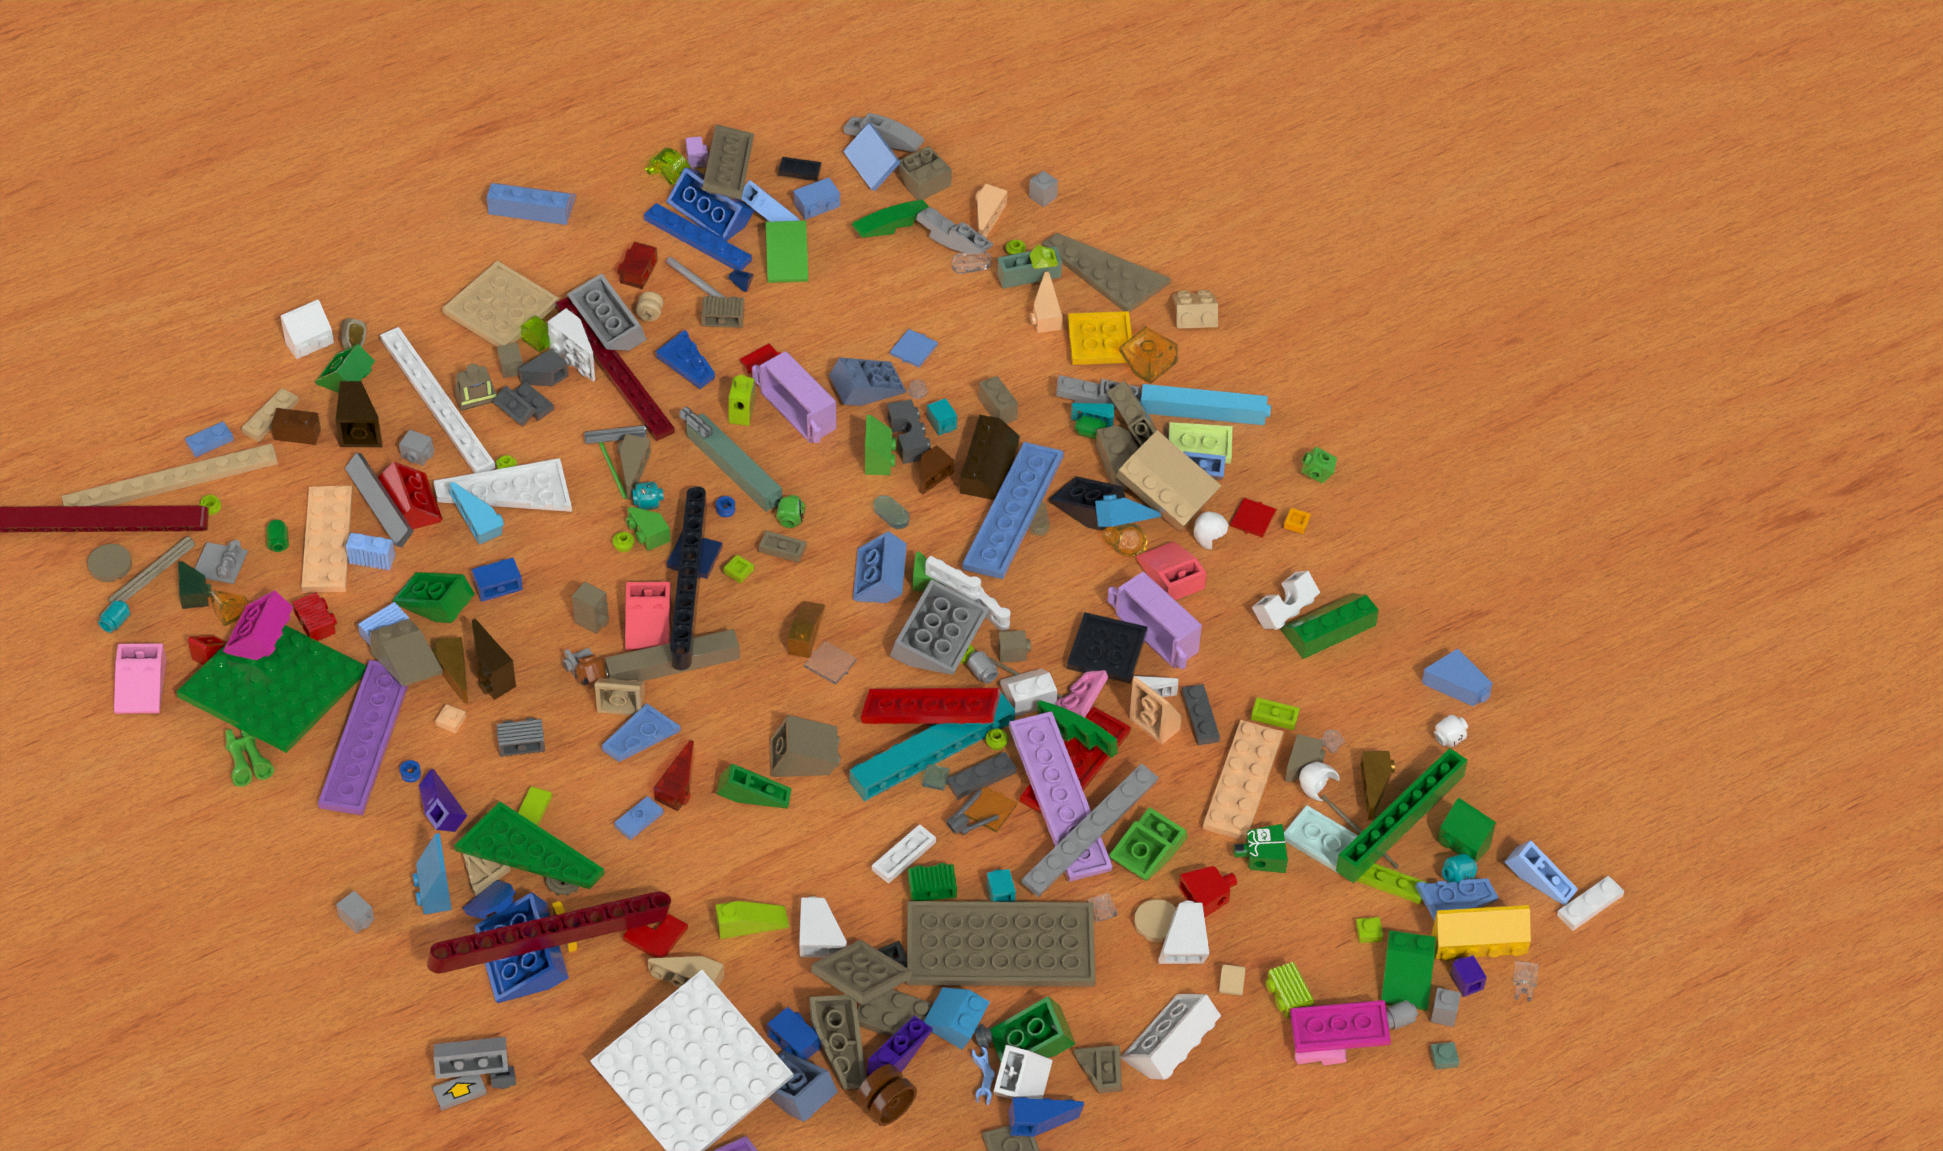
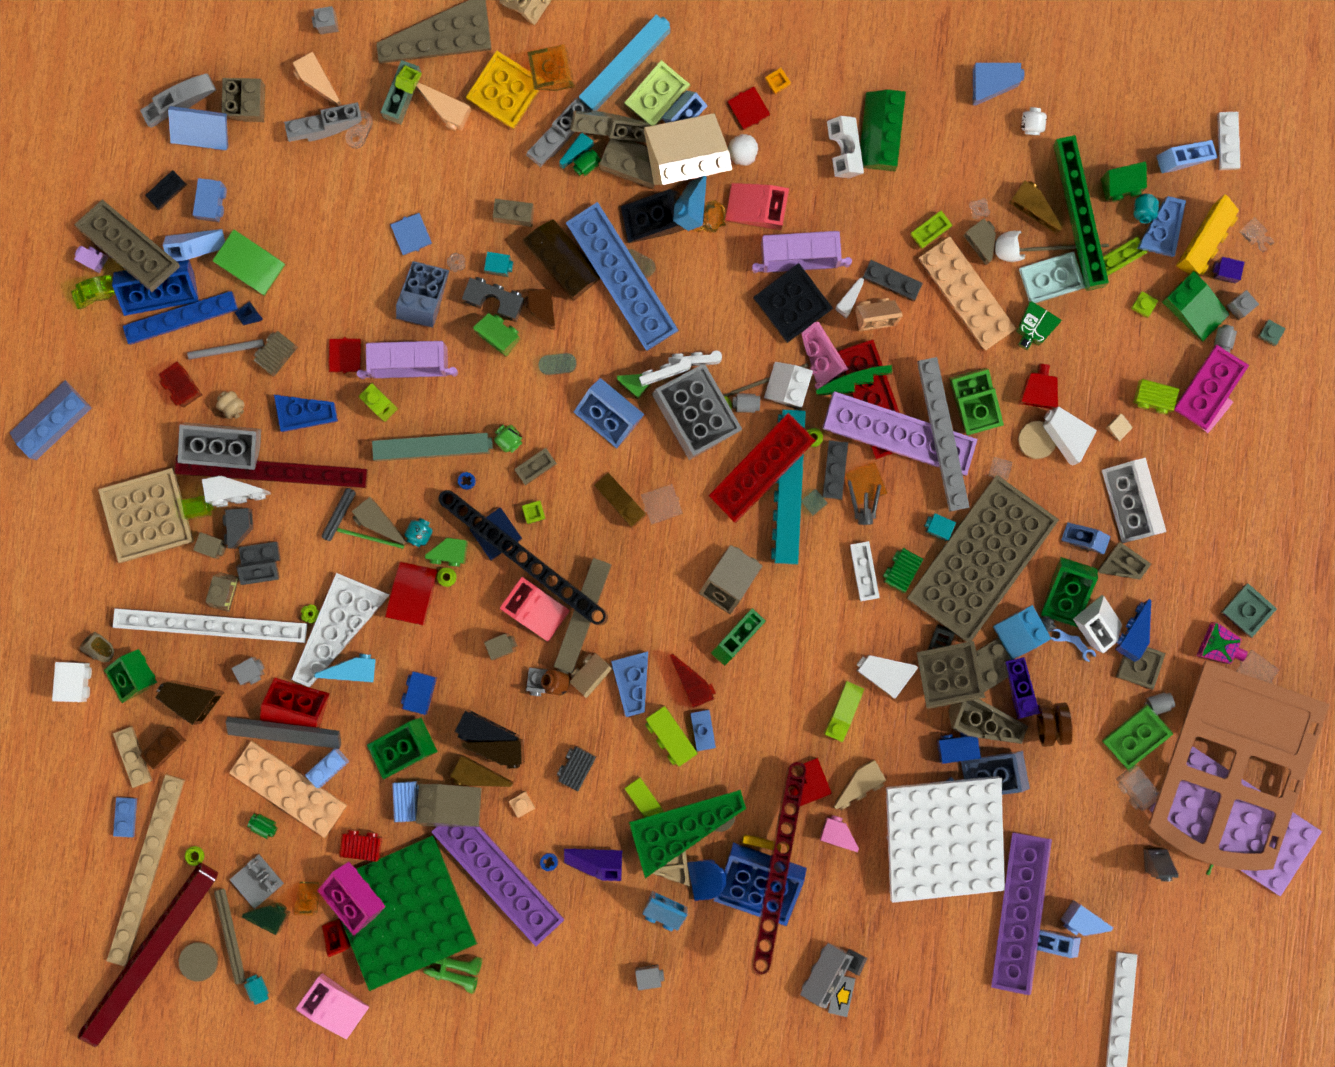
camera: 50 degrees left, 35 degrees up
(497, 623) = (476, 727): none -> black slope
(584, 522) = (411, 593): none -> red slope
(612, 792) = (670, 736): none -> lime brick
(624, 984) = (837, 833): none -> bright pink slope
(696, 422) = (378, 454): dark grey axle -> none
(888, 219) = (272, 158): green slope -> none
(1013, 646) = (744, 367): dark tan brick -> none
(1015, 247) = (368, 90): lime plate -> none
(1098, 1018) = (1086, 538): none -> medium blue slope
(1318, 464) = (743, 26): bright green brick -> none

